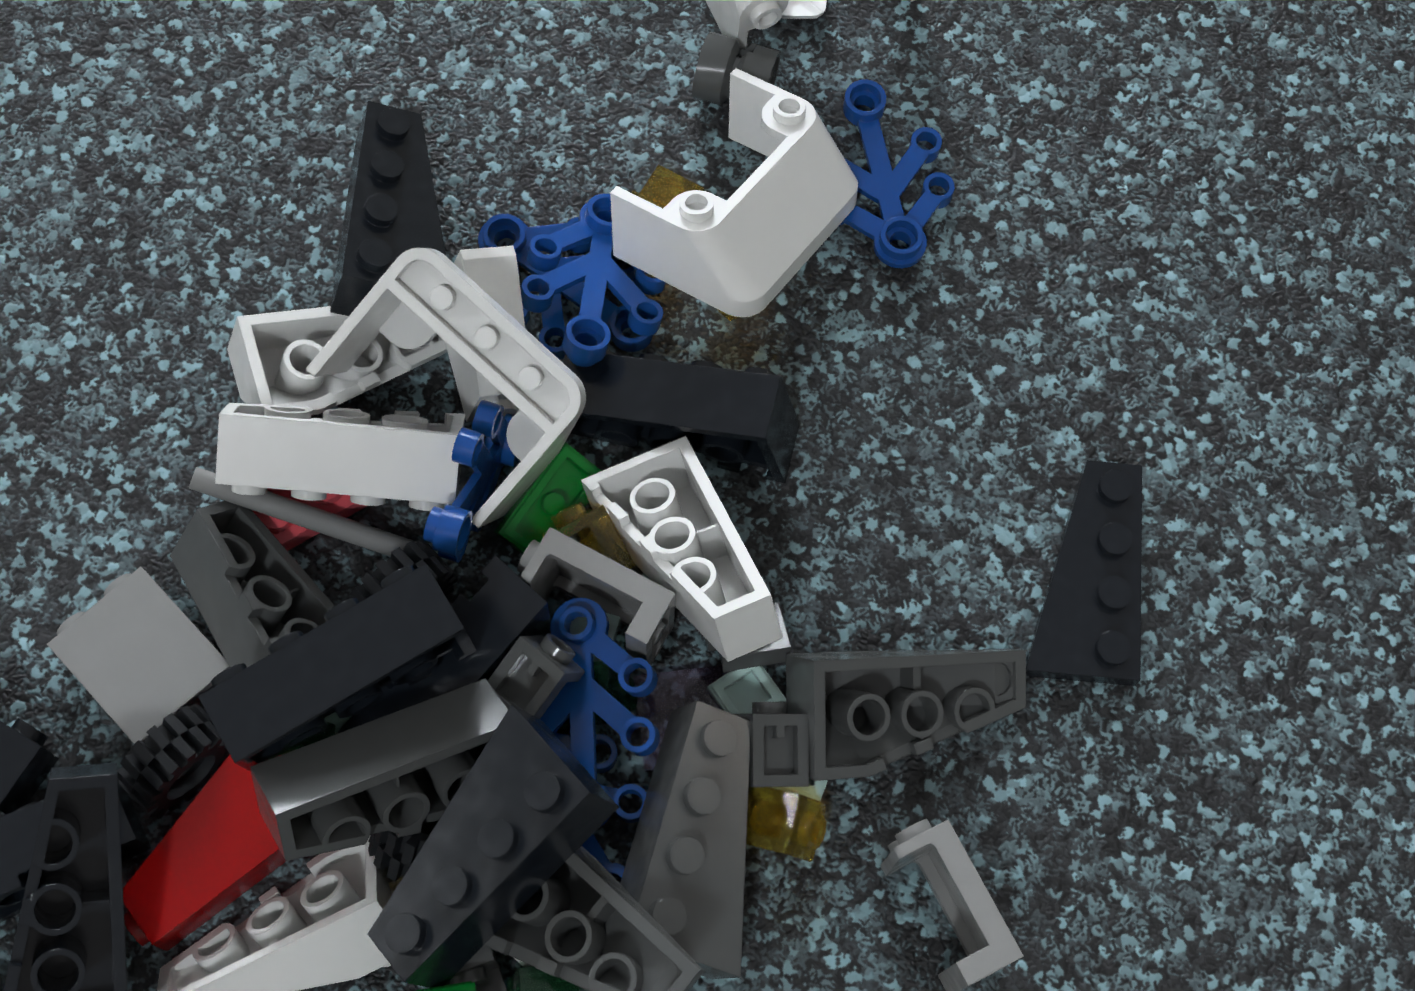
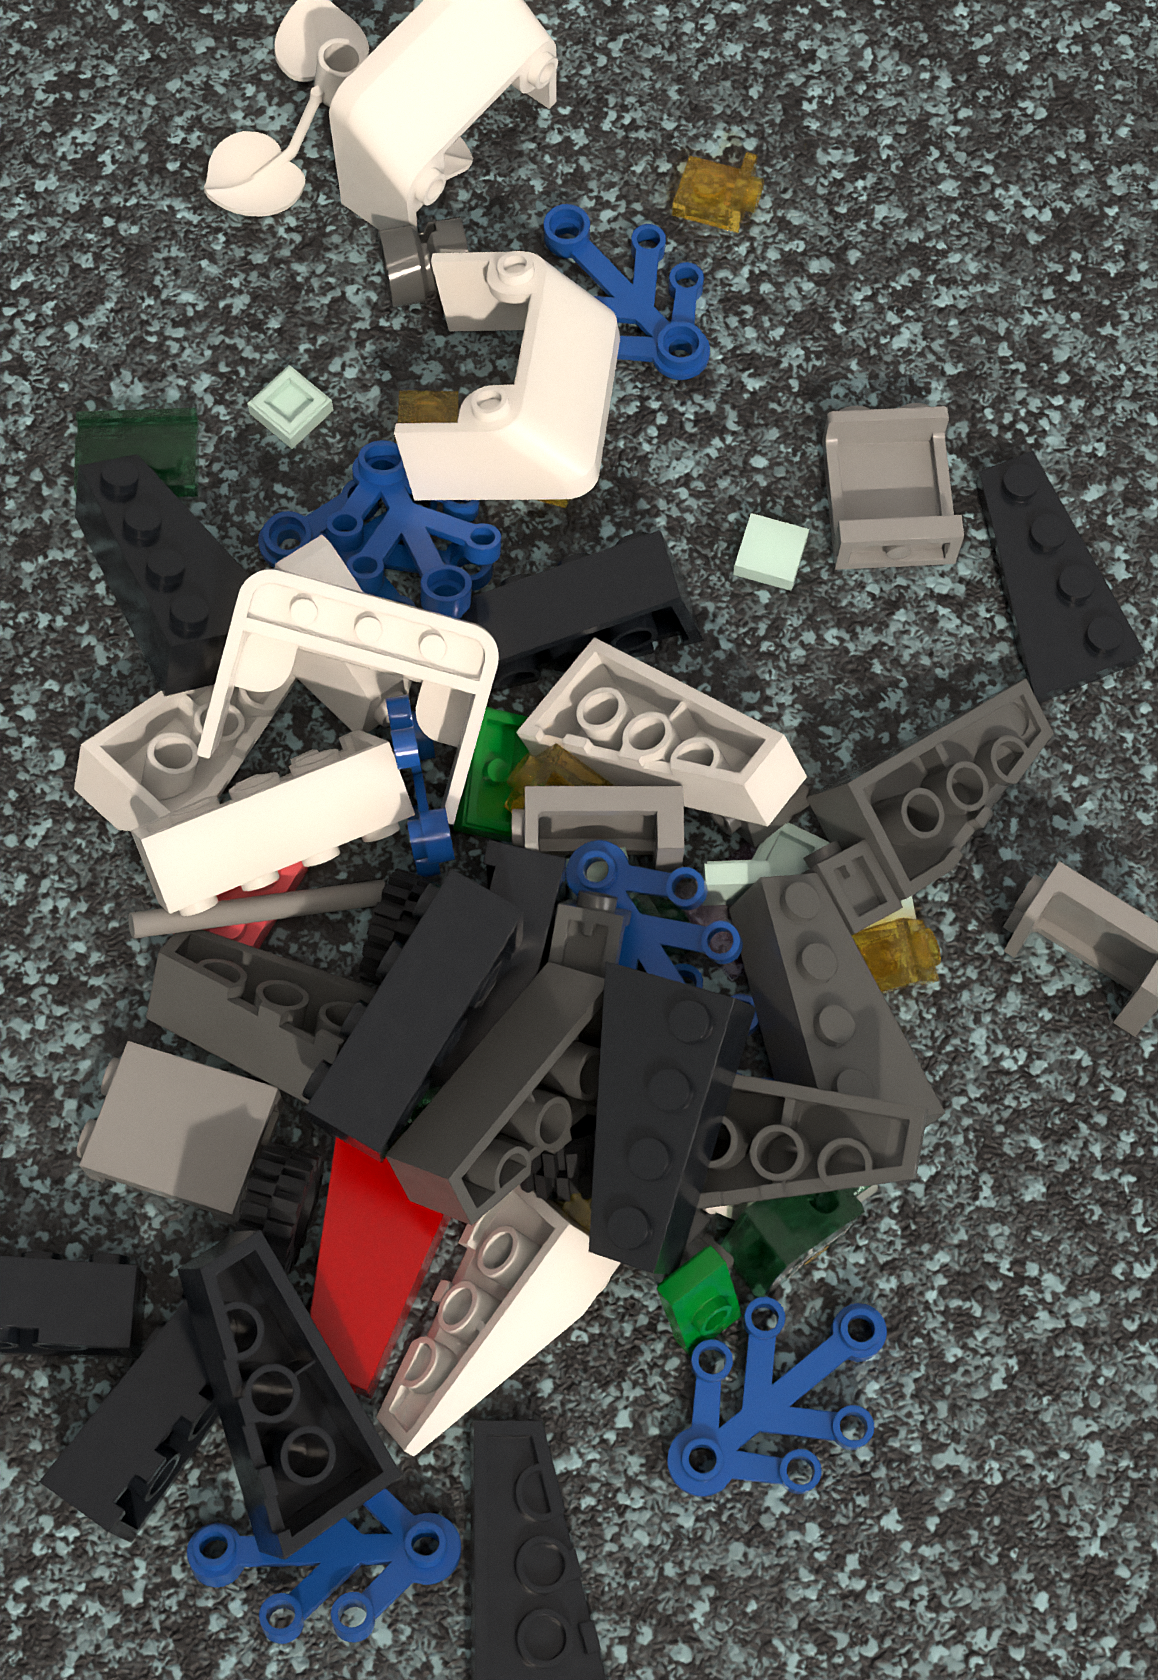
camera: 25 degrees left, 0 degrees up
(450, 114) = (159, 436): none -> clear green plate
(570, 136) = (290, 406): none -> light aqua tile
(683, 688) = (731, 879): none -> light aqua tile
(879, 439) = (771, 551): none -> light aqua tile
(1005, 130) = (718, 192): none -> clear yellow bracket
(1006, 436) = (890, 487): none -> light grey panel

